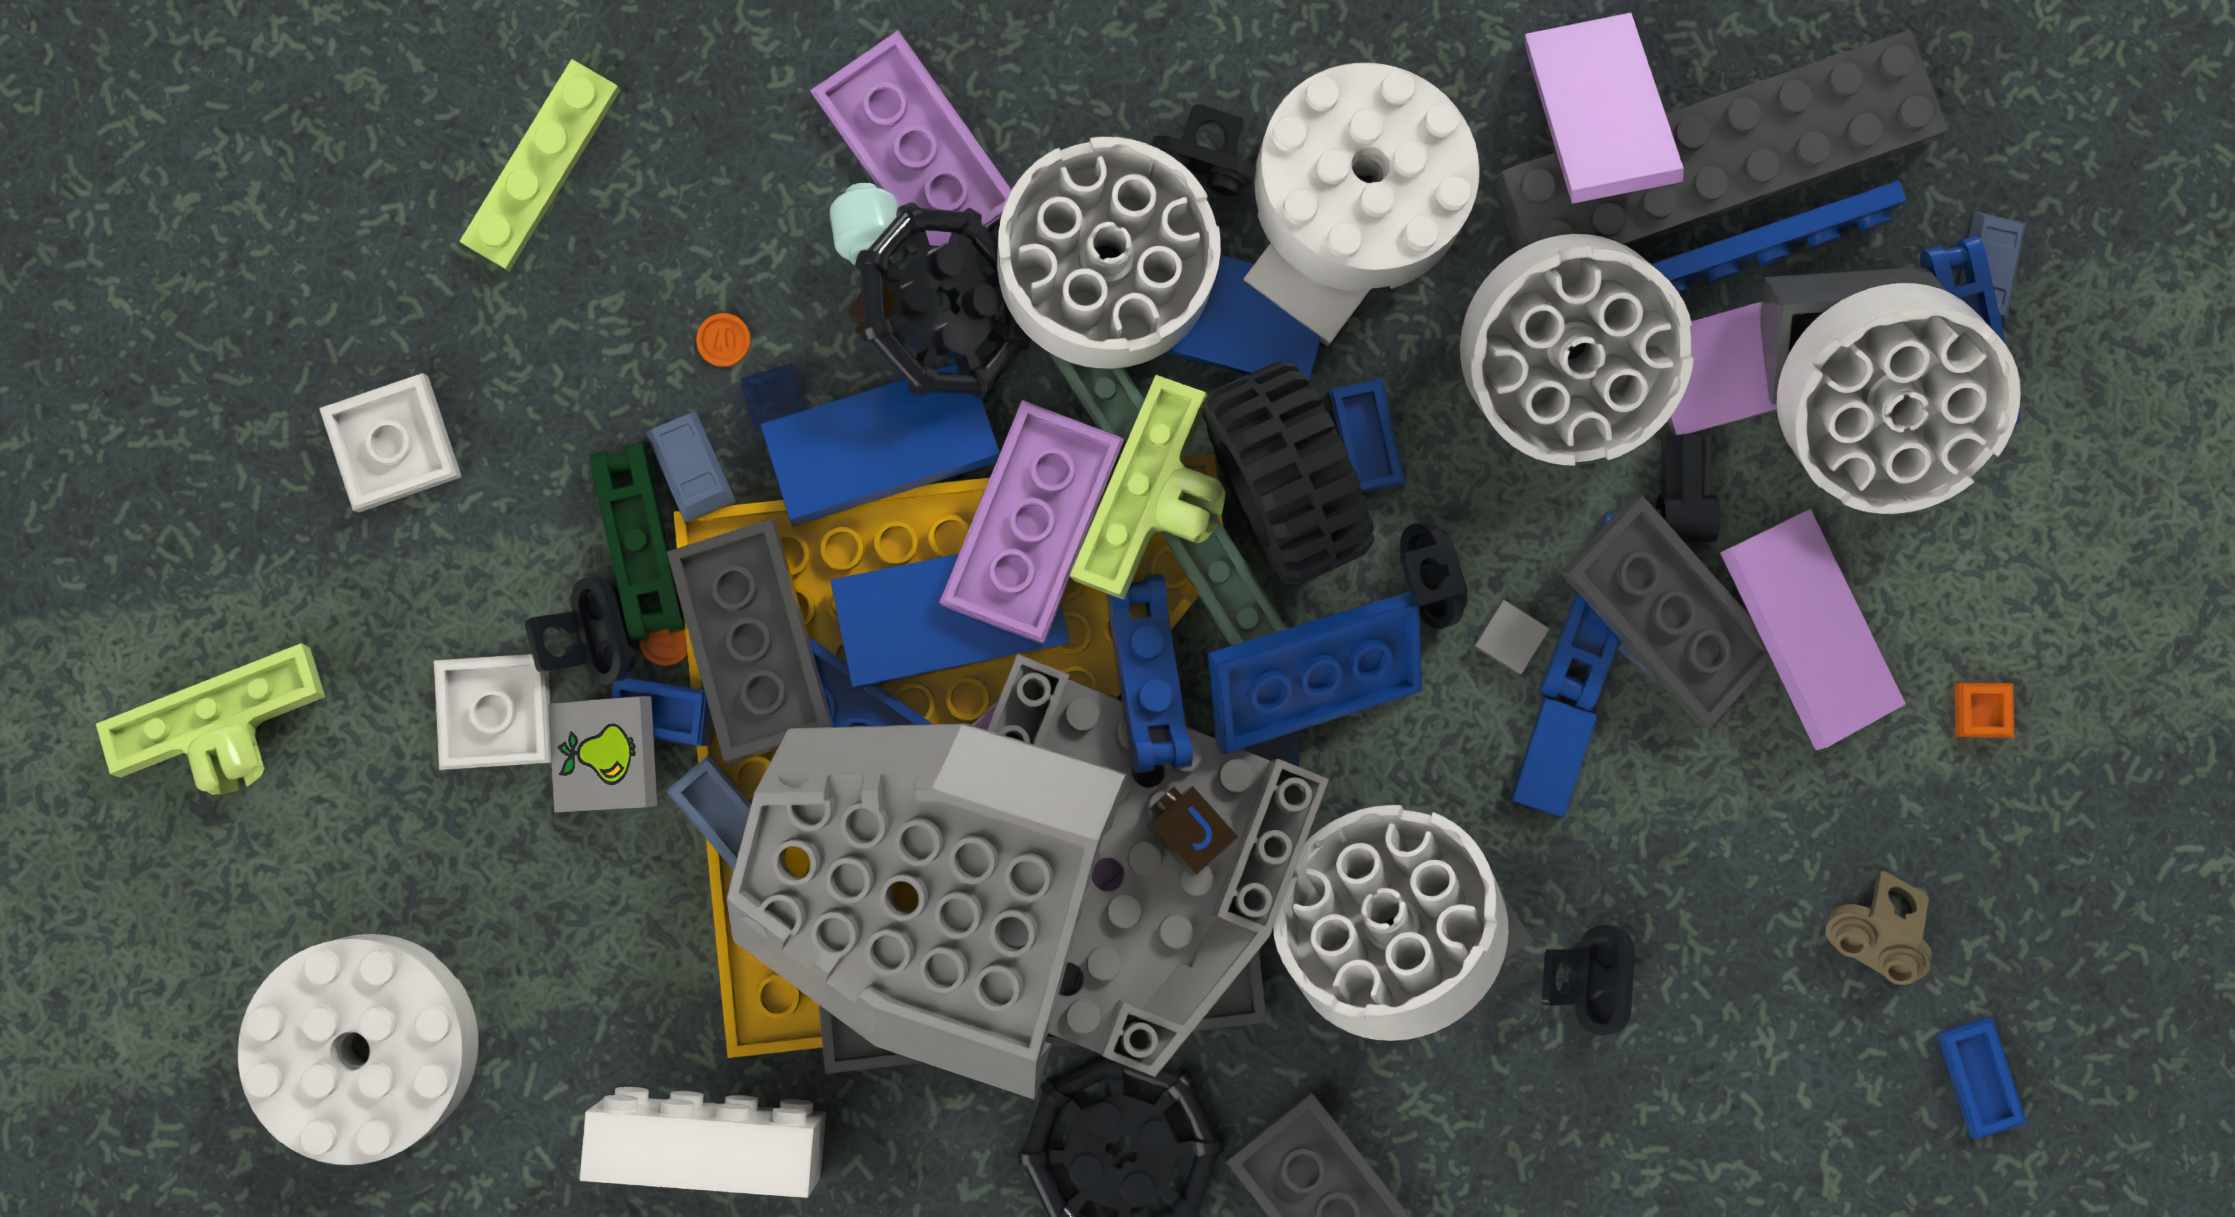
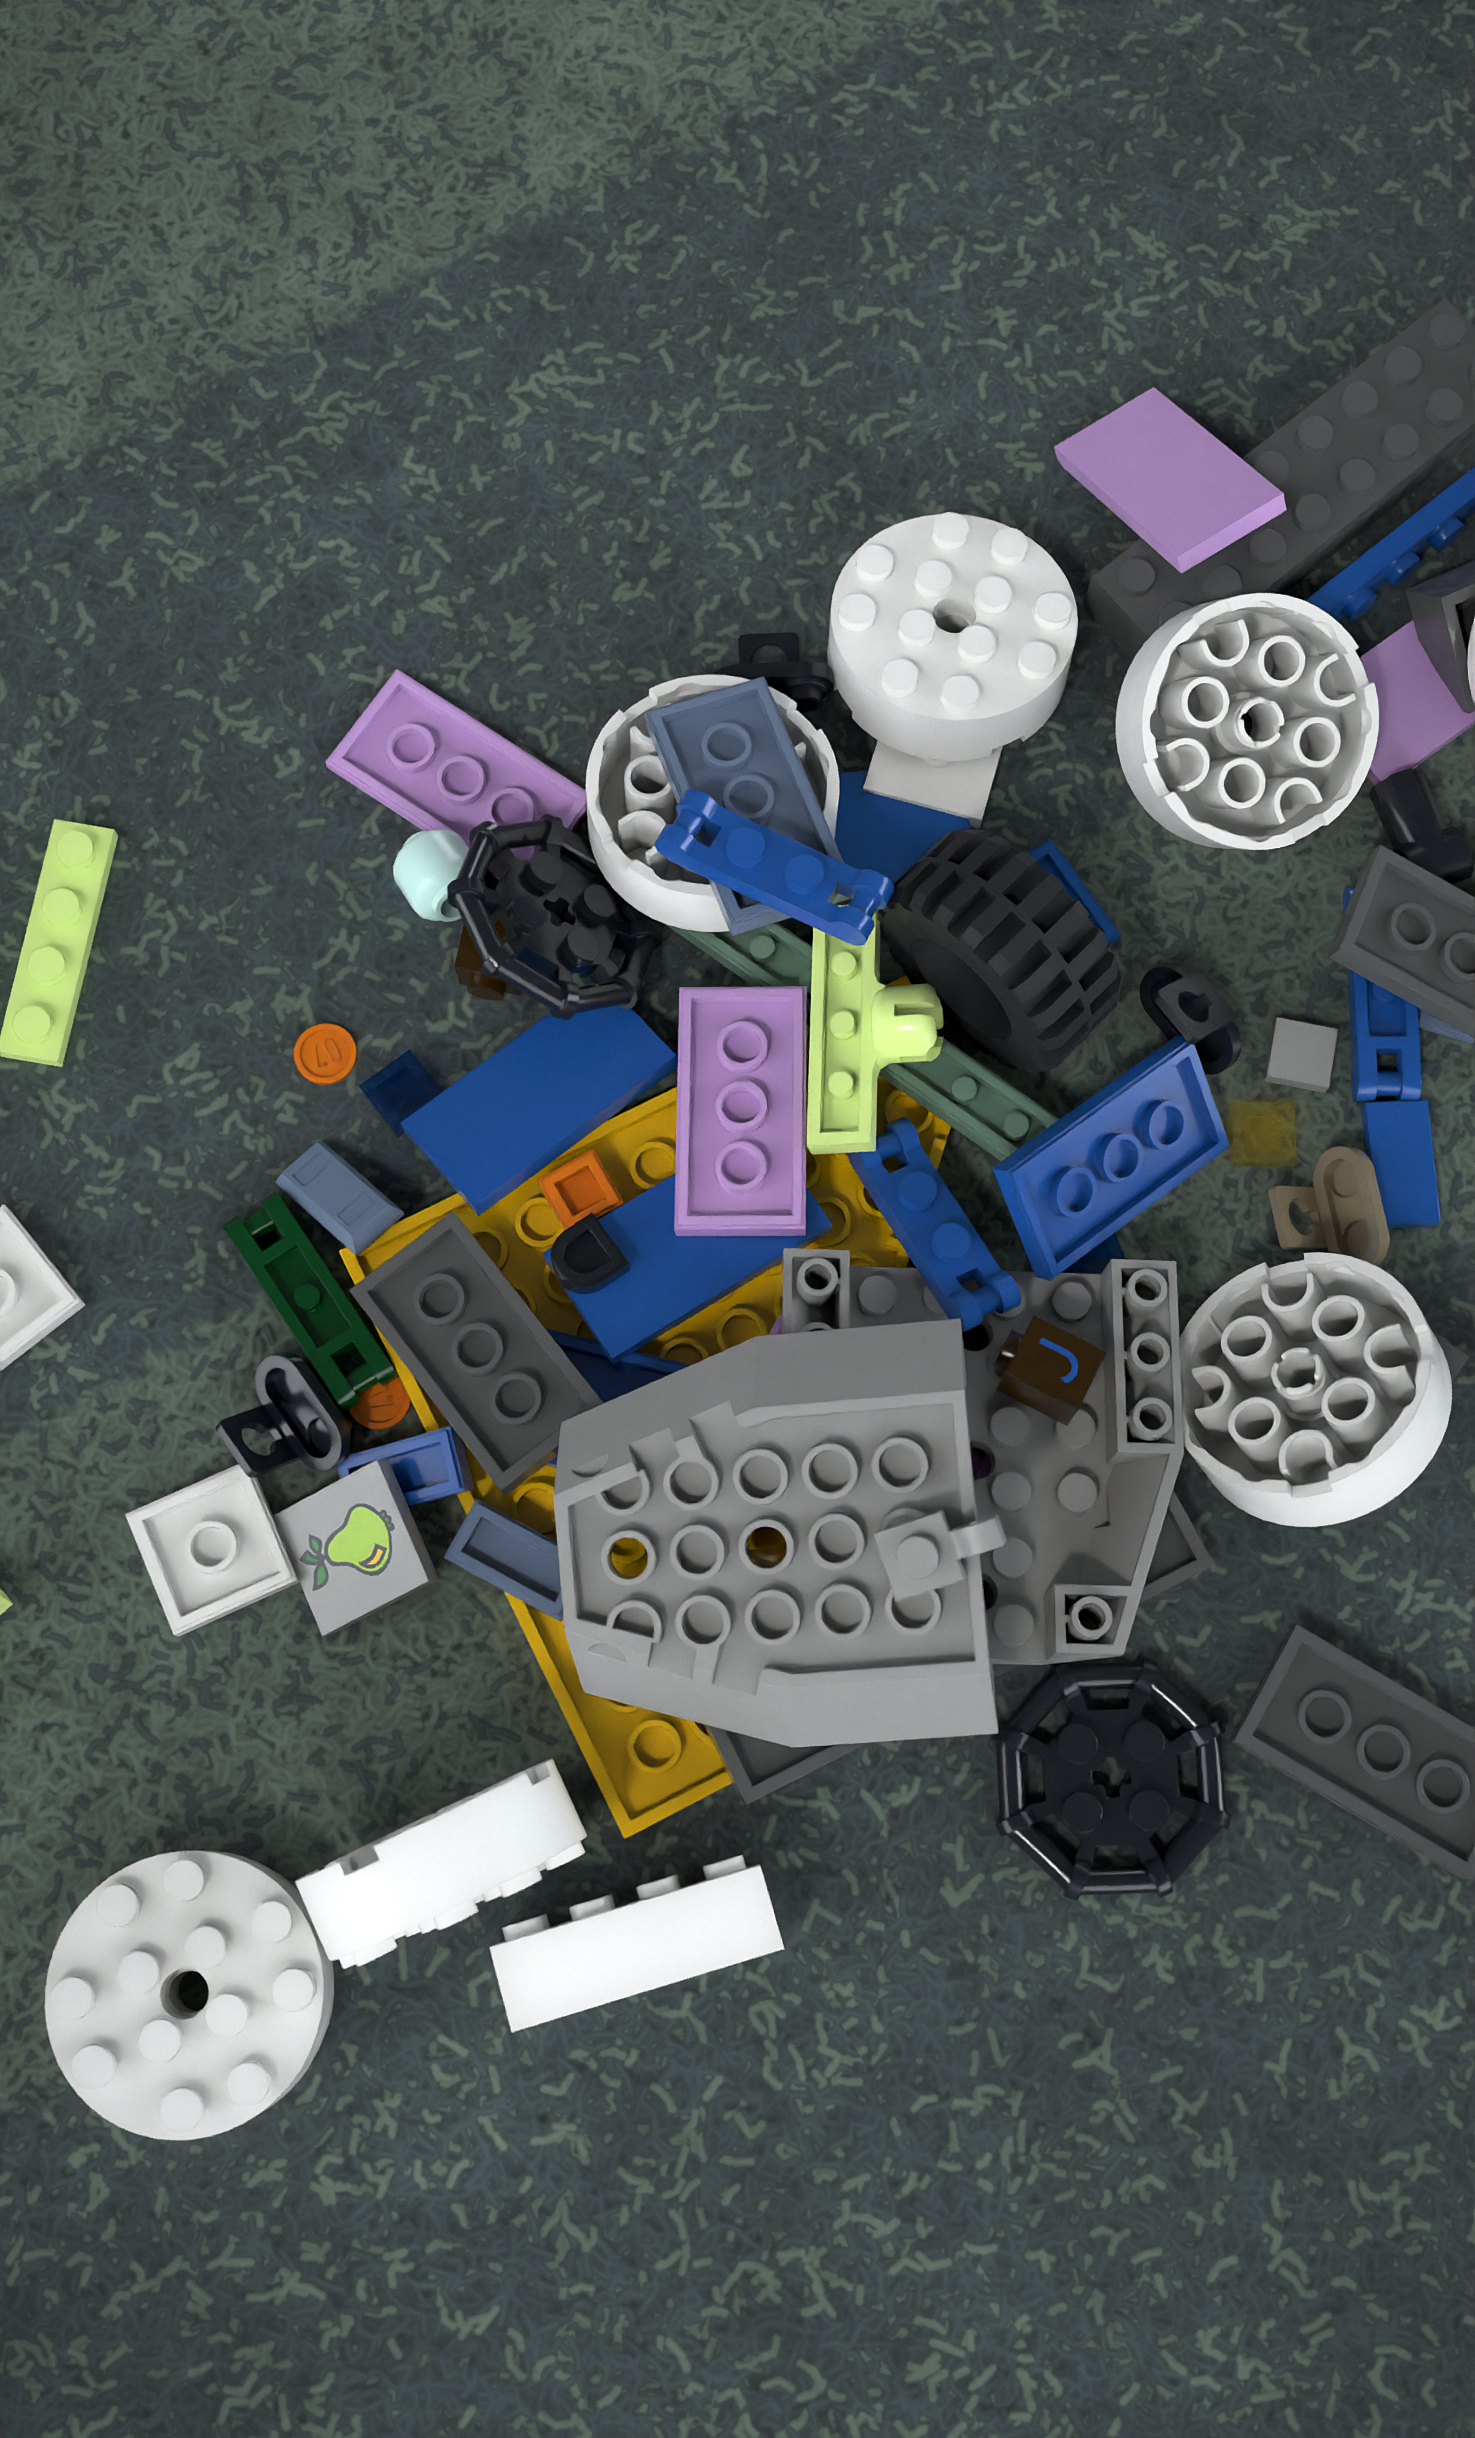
camera: 15 degrees left, 10 degrees down
(573, 1036) = (443, 1865): none -> white brick
(861, 598) = (586, 1257): none -> black tile
(881, 538) = (579, 1190): none -> orange tile
(1021, 956) = (927, 1553): none -> light grey plate
(1124, 343) = (774, 869): none -> blue plate
(1130, 274) = (744, 760): none -> sand blue tile
(1452, 691) = (1262, 1134): none -> clear yellow tile
(1488, 780) = (1341, 1205): none -> dark tan bracket

